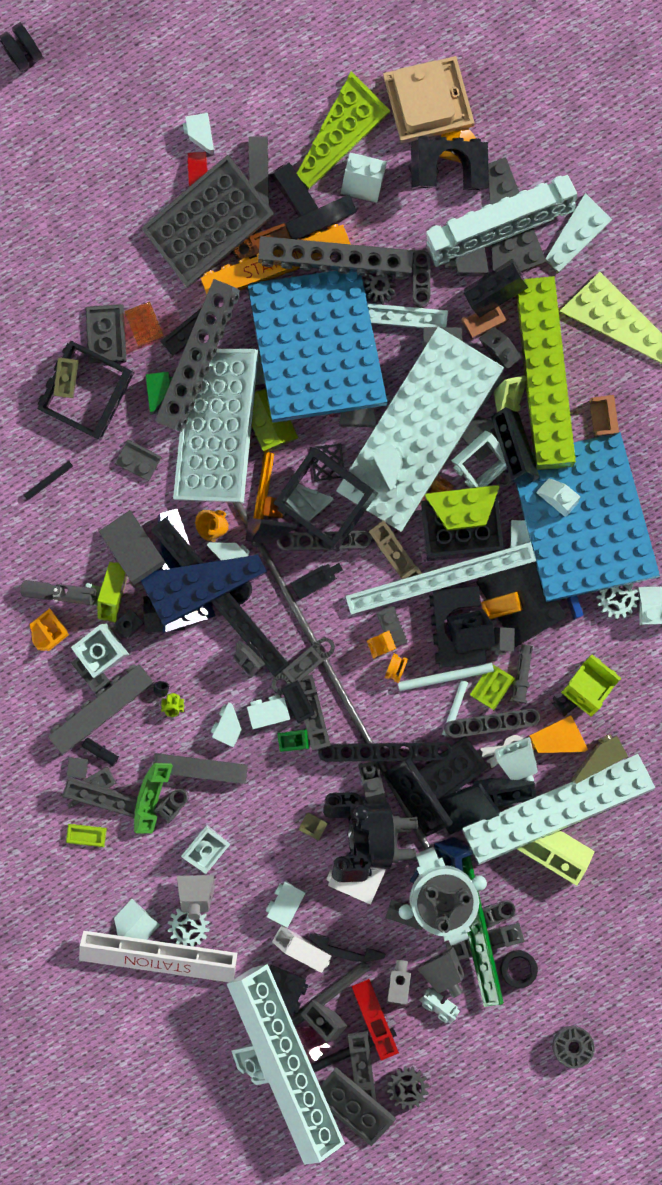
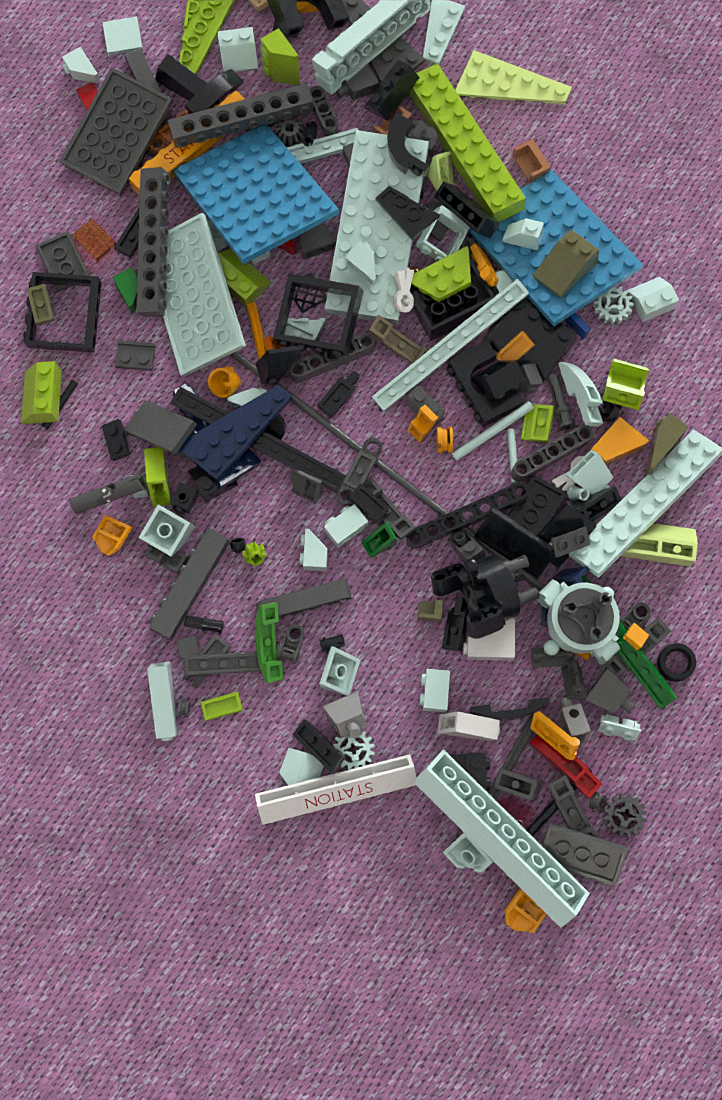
camera: 25 degrees left, 10 degrees down
(34, 464) = (41, 393): none -> lime slope
(34, 808) = (162, 700): none -> light aqua slope
(51, 823) = (183, 708): none -> dark grey bush
(87, 538) = (116, 440): none -> black plate
(158, 911) = (319, 746): none -> black plate
(210, 818) = (336, 641): none -> black pin
(255, 112) = (122, 35): none -> light aqua tile
(277, 1136) = (523, 913): none -> light orange slope
(330, 850) = (456, 626): none -> black hinge
(374, 993) = (555, 736): none -> light orange plate
(389, 1065) = (597, 802): none -> dark grey bush
(397, 210) = (279, 59): none -> lime slope
(397, 299) = (309, 133): none -> black pin
(415, 514) = (403, 298): none -> white piece
(415, 948) = (573, 681): none -> dark grey hinge
(450, 432) = (407, 214): none -> black wing
(465, 822) = (569, 542): none -> dark grey hinge
(468, 362) = (402, 159): none -> black arch
(489, 932) = (635, 636): none -> light orange tile
(498, 773) = (575, 493): none -> light aqua pin
(508, 510) = (484, 266): none -> light orange hinge
(548, 669) = (584, 390): none -> light aqua slope
(584, 547) = (567, 263): none -> olive slope

